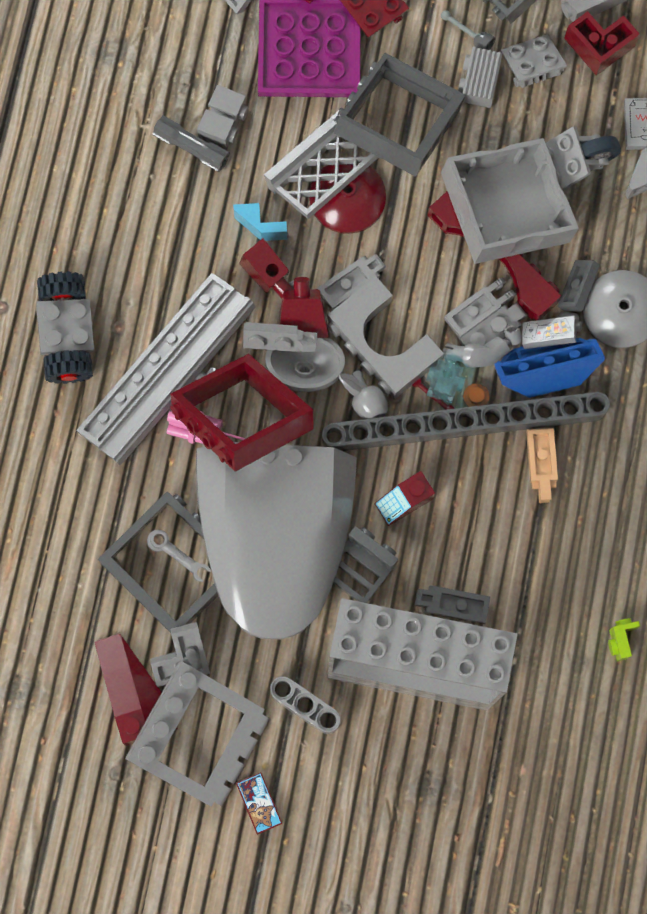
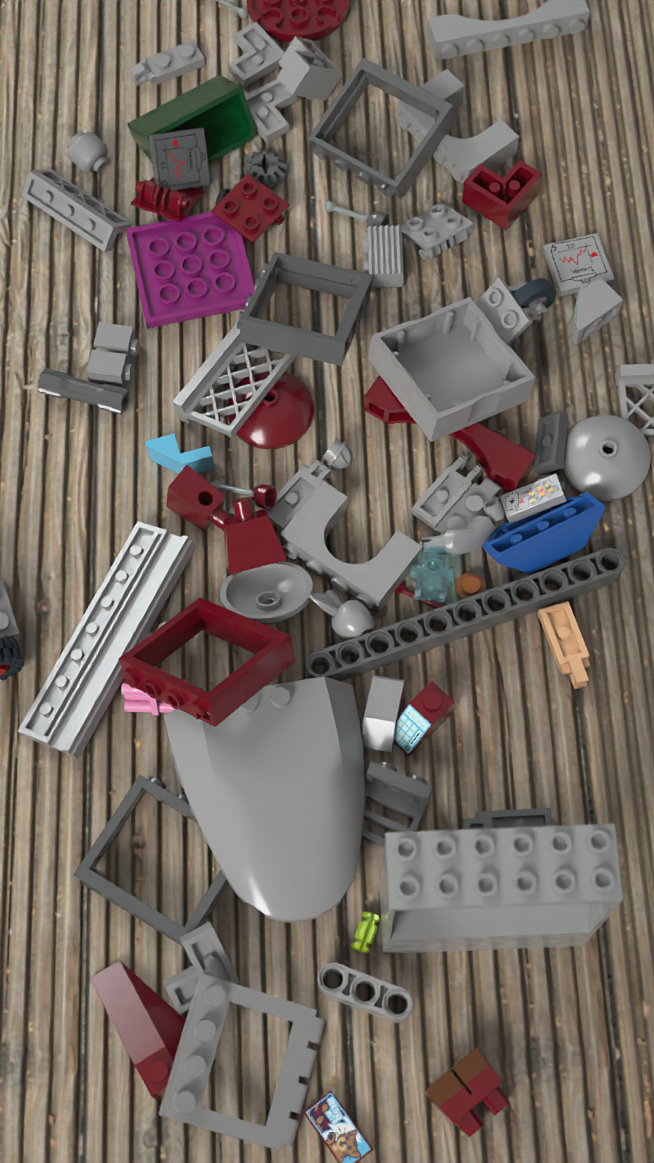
camera: 10 degrees left, 10 degrees down
(177, 554) = (160, 841): light grey brick -> none
(278, 338) = (229, 571): light grey hinge -> none
(317, 659) = (366, 932): none -> lime piece
(321, 276) = (262, 495): none -> dark red hinge
(375, 485) = (382, 713): none -> light grey slope
(376, 794) = (454, 1100): none -> dark red hips
(395, 253) = (339, 455): none -> light grey plate

